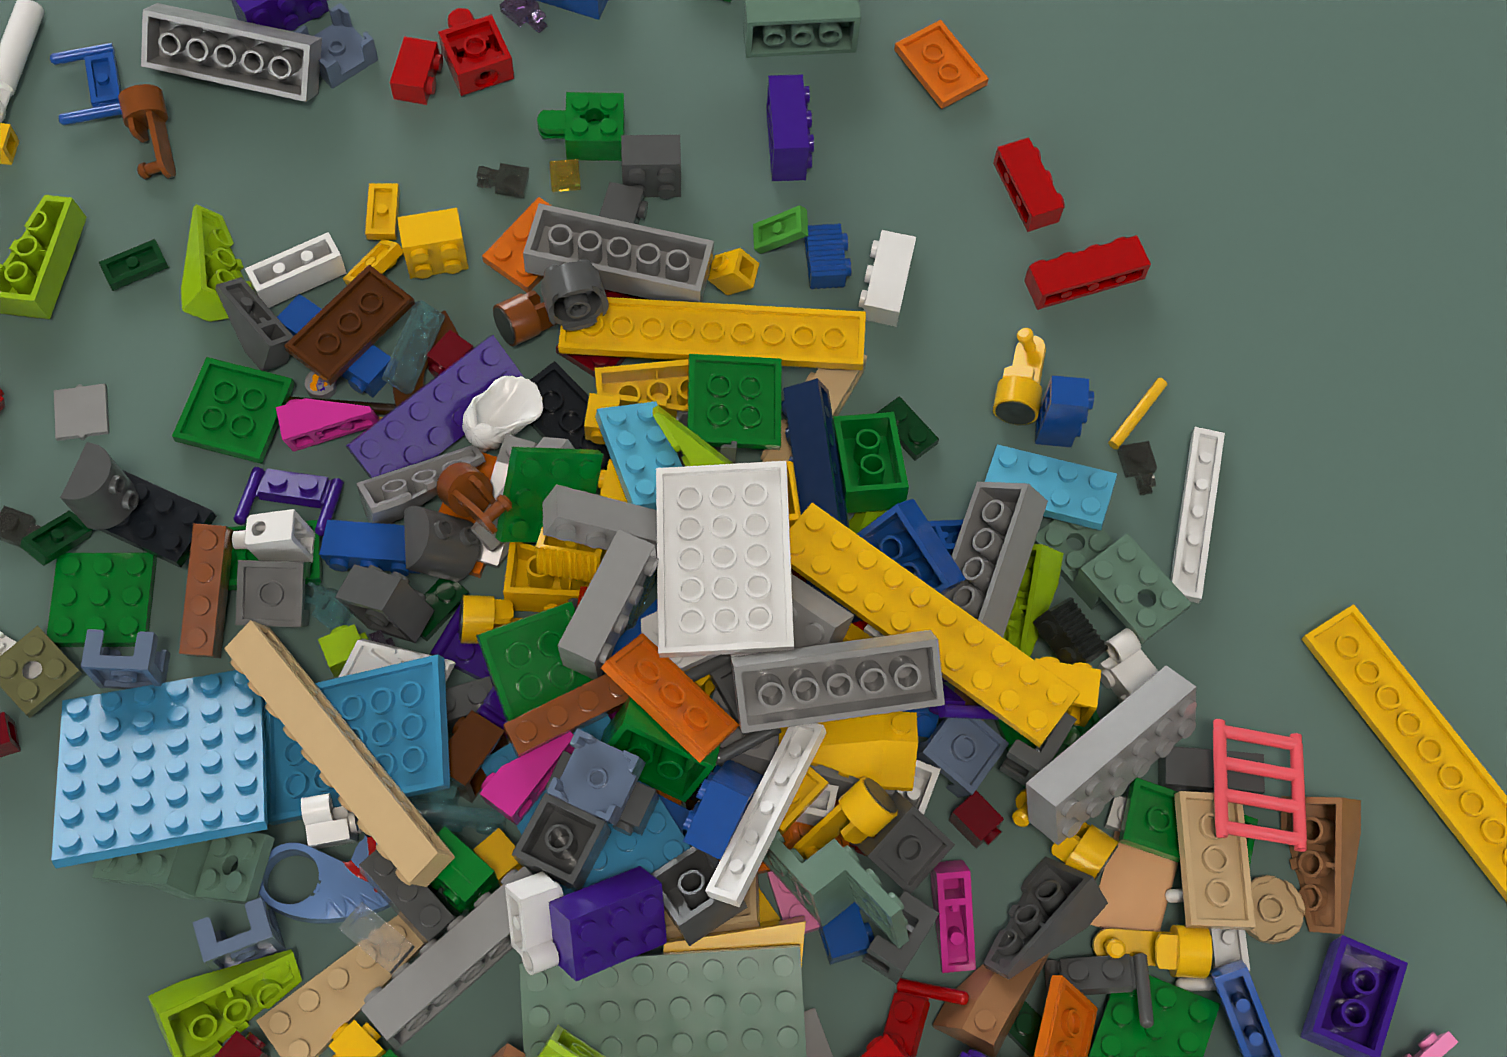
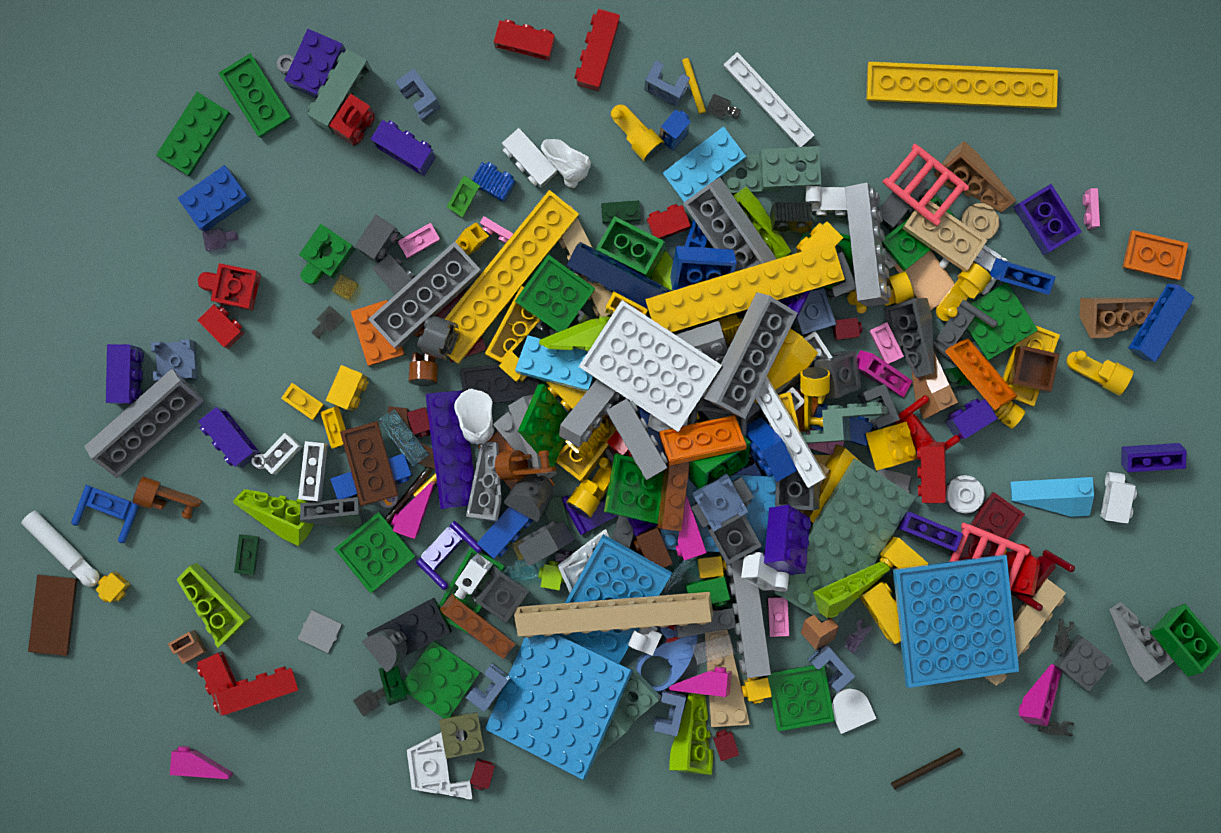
camera: 55 degrees left, 20 degrees up
(276, 152) = (228, 437): none -> dark purple brick
(290, 218) = (278, 455): none -> white hinge
(321, 965) = (713, 682): none -> dark pink slope
(488, 1008) = (778, 616): none -> bright pink plate
(686, 218) = (419, 240): none -> bright pink plate
(766, 286) = (491, 227): none -> bright pink plate
(777, 46) = (353, 120): none -> red brick
(858, 995) = (891, 446): none -> yellow brick
(867, 106) = (413, 83): none -> sand blue panel
(919, 320) = (569, 162): none -> white hair
(938, 490) = (668, 222): none -> red brick
(941, 64) = (415, 30): orange plate -> none
(999, 892) = (886, 343): none -> bright pink plate
(1102, 374) = (664, 90): none -> sand blue panel

